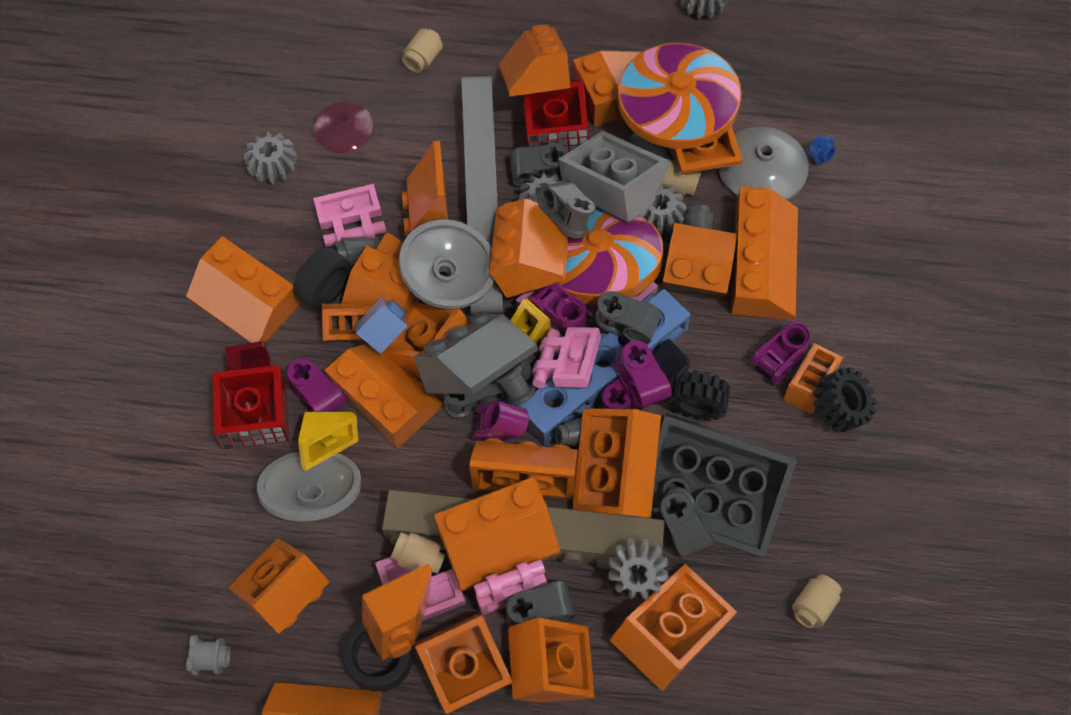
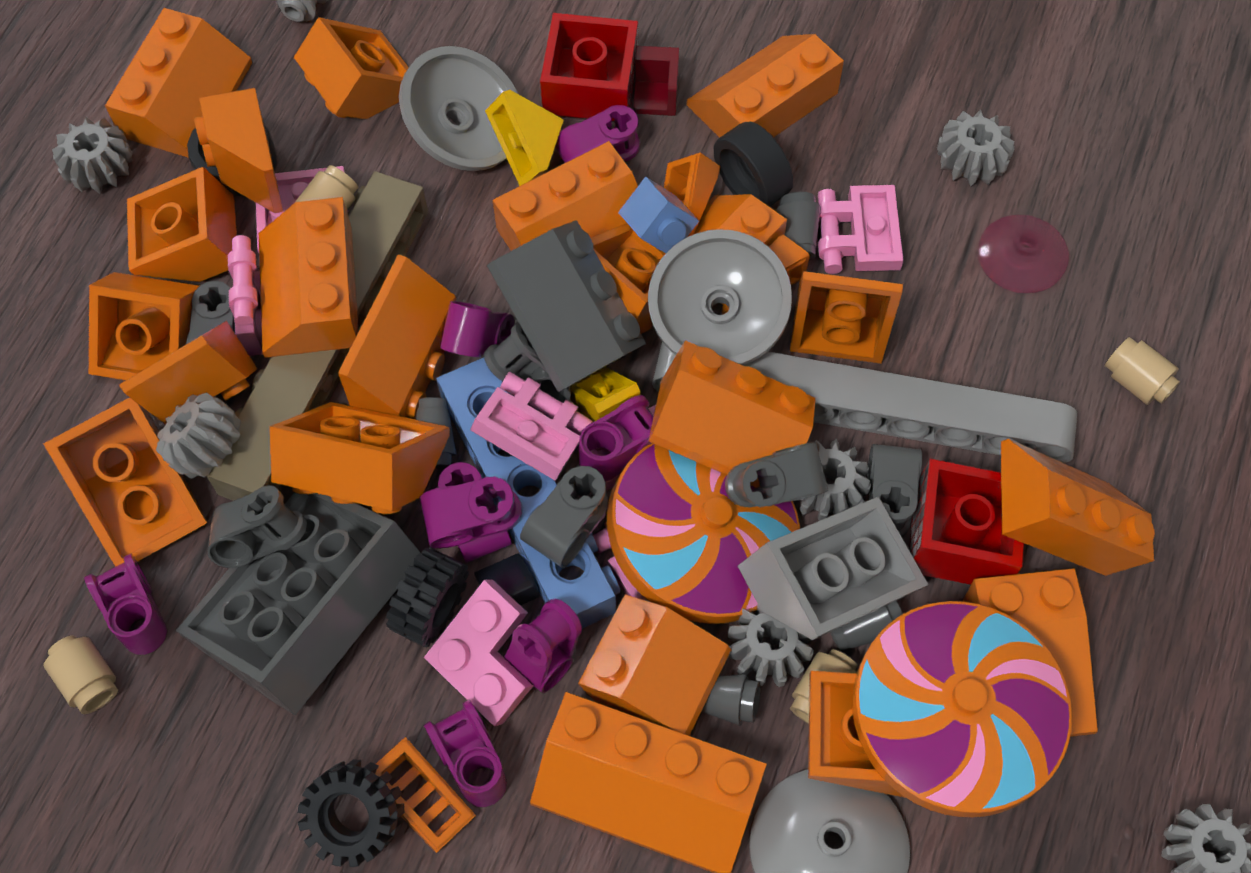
camera: 105 degrees right, 0 degrees up
(587, 596) = (205, 365): none -> orange slope
(706, 322) = (546, 645): none -> magenta piece
(727, 361) = (470, 656): none -> bright pink plate
(756, 594) = (124, 598): none -> magenta piece

